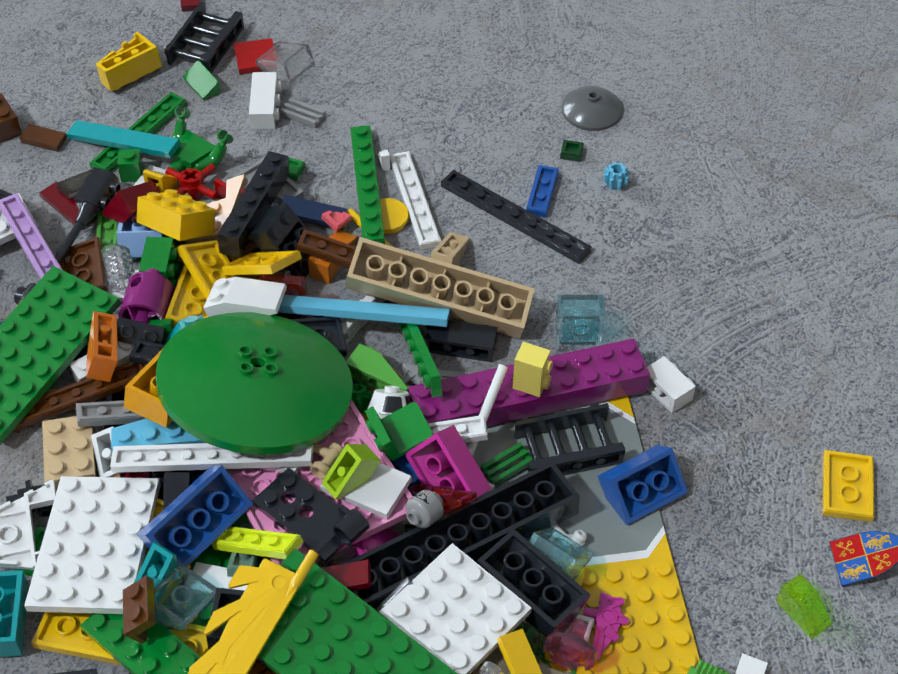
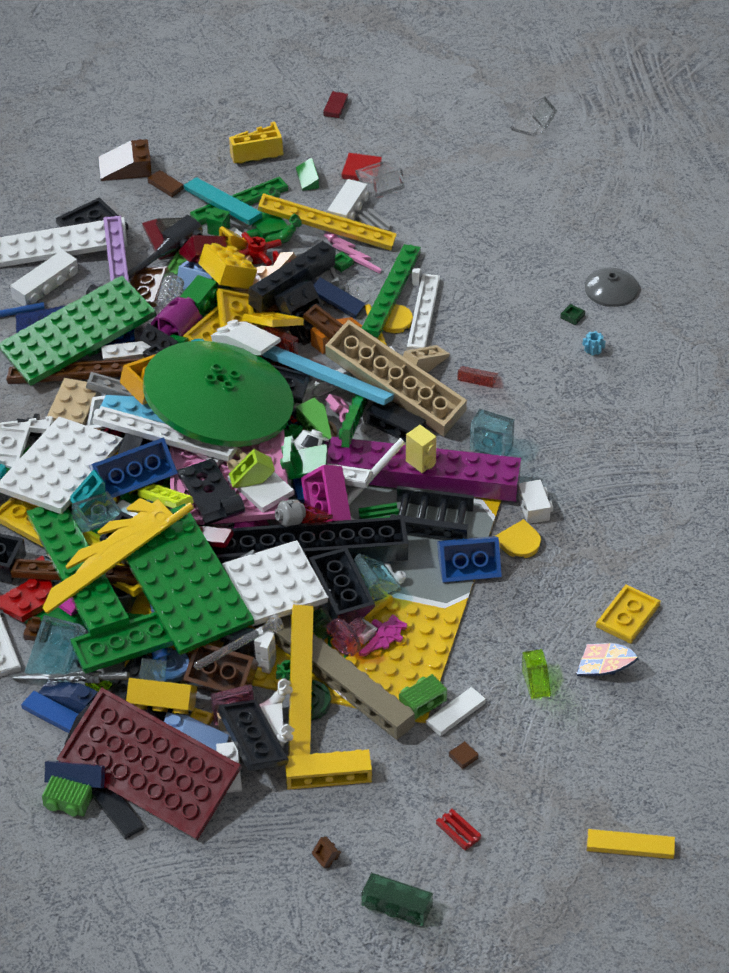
camera: 25 degrees right, 5 degrees down
(102, 347) = (127, 339): orange slope -> none
(139, 609) = (65, 508): reddish brown bracket -> none
(215, 49) = (330, 153): black fence -> none
(256, 127) = (328, 222): none -> yellow plate
(289, 150) = (347, 247): none -> bright pink piece
(336, 219) = (352, 309): coral tile -> none
(386, 342) = (338, 405): none -> bright pink plate
(515, 254) = (476, 376): none -> clear red slope
(516, 216) = (496, 349): black tile -> none
(542, 190) = (528, 337): blue tile -> none
(681, 435) = (520, 540): none -> yellow tile

